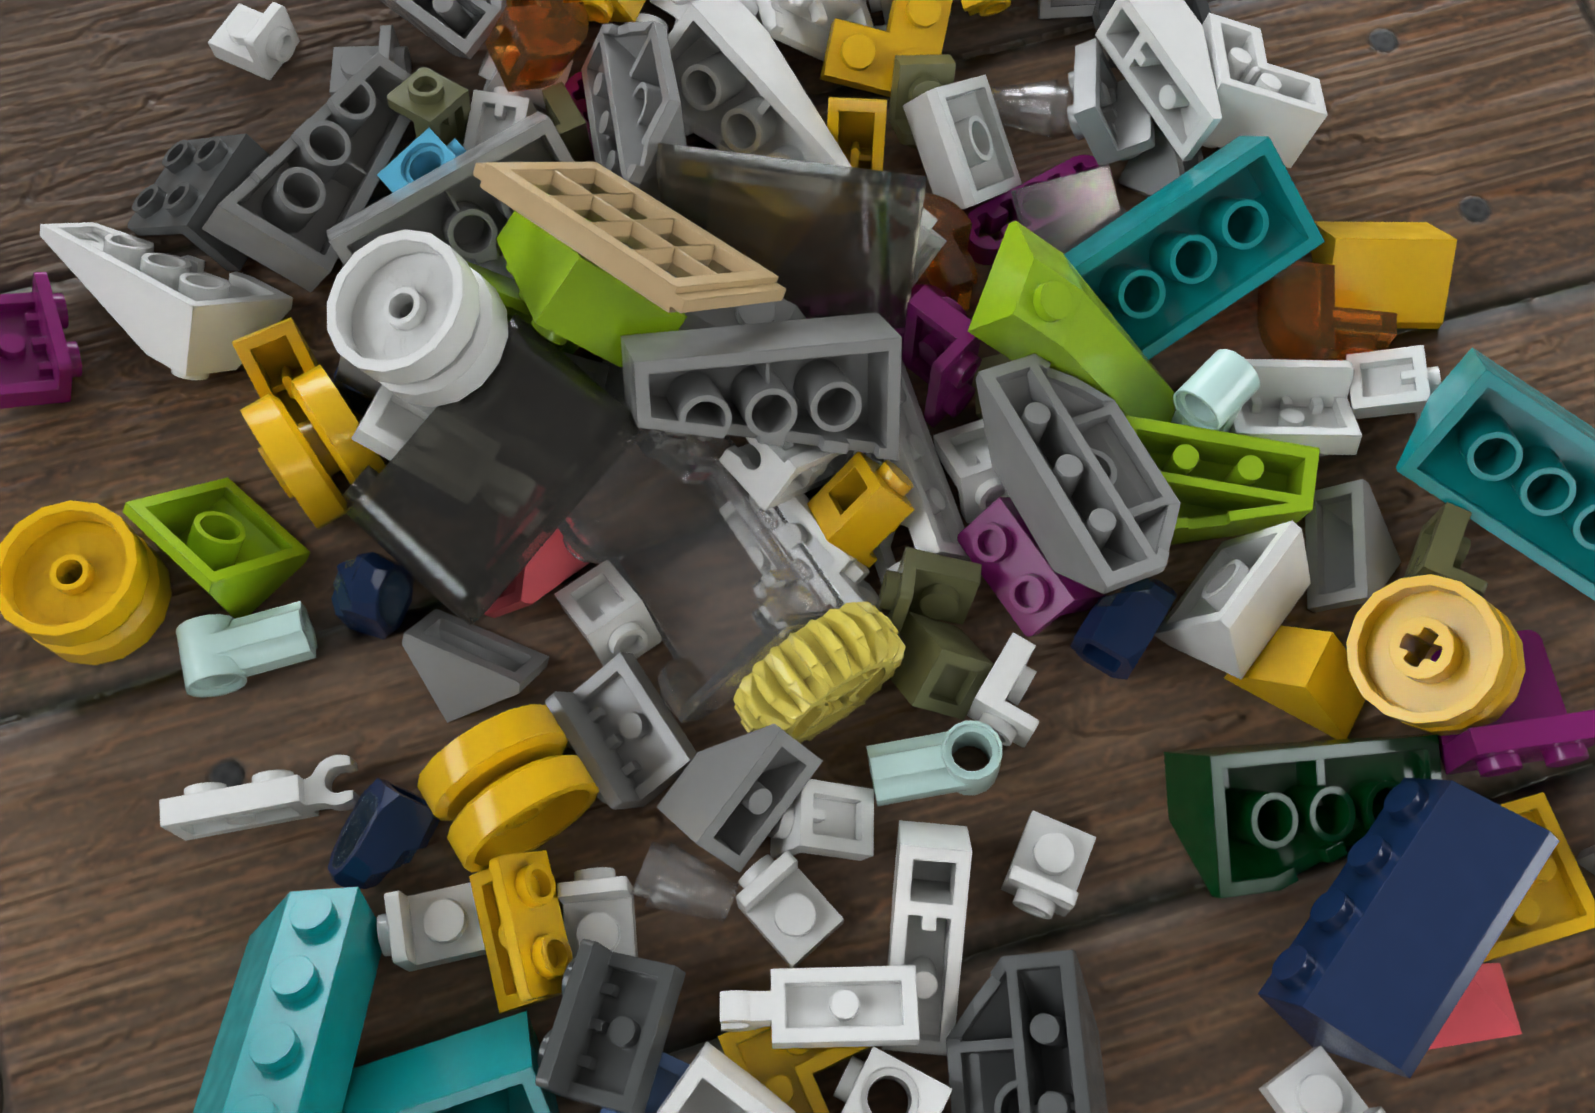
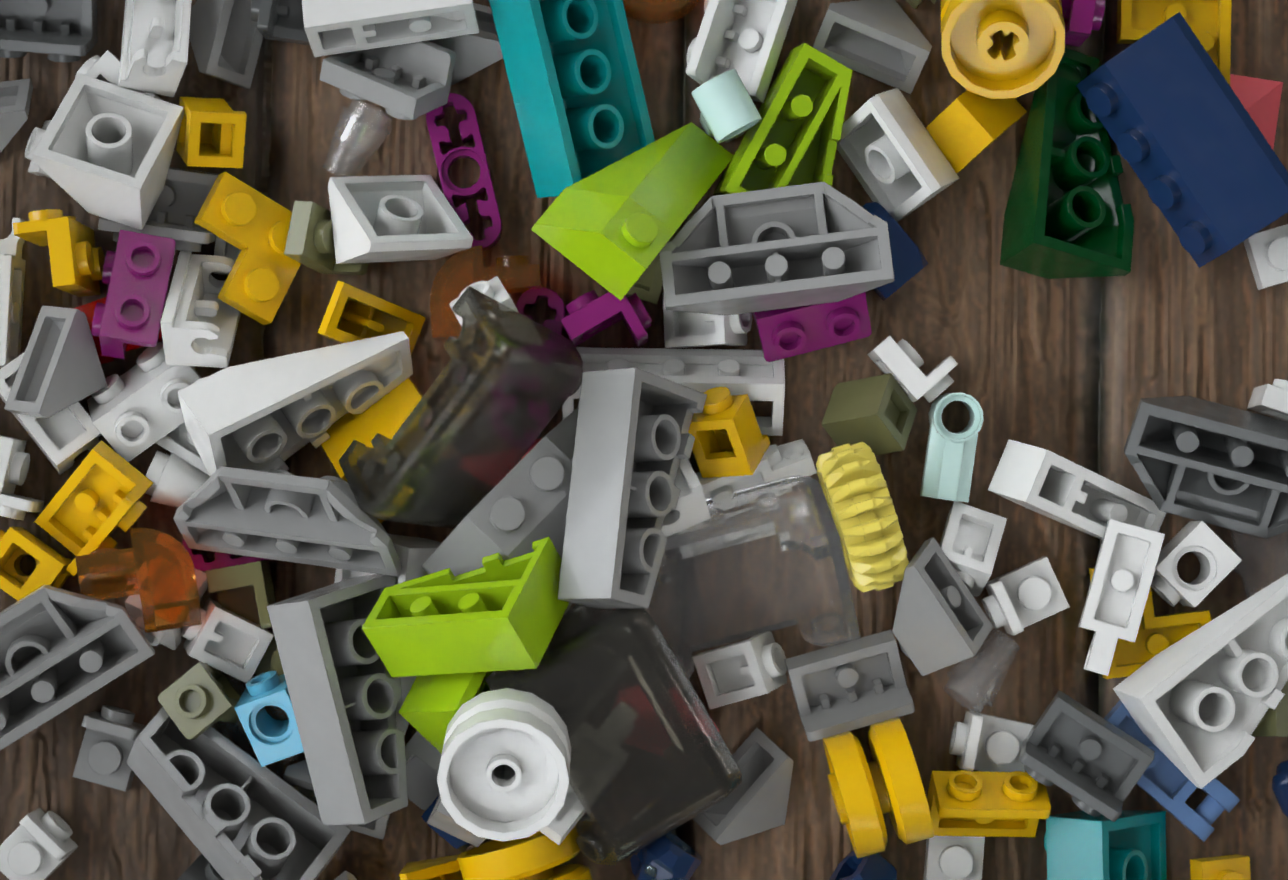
camera: 70 degrees left, 20 degrees up
(620, 214) = (564, 510): tan piece -> none
(929, 587) = (805, 397): olive bracket -> none
(1048, 866) = (1054, 386): white bracket -> none
(1069, 207) = (491, 153): clear piece -> none

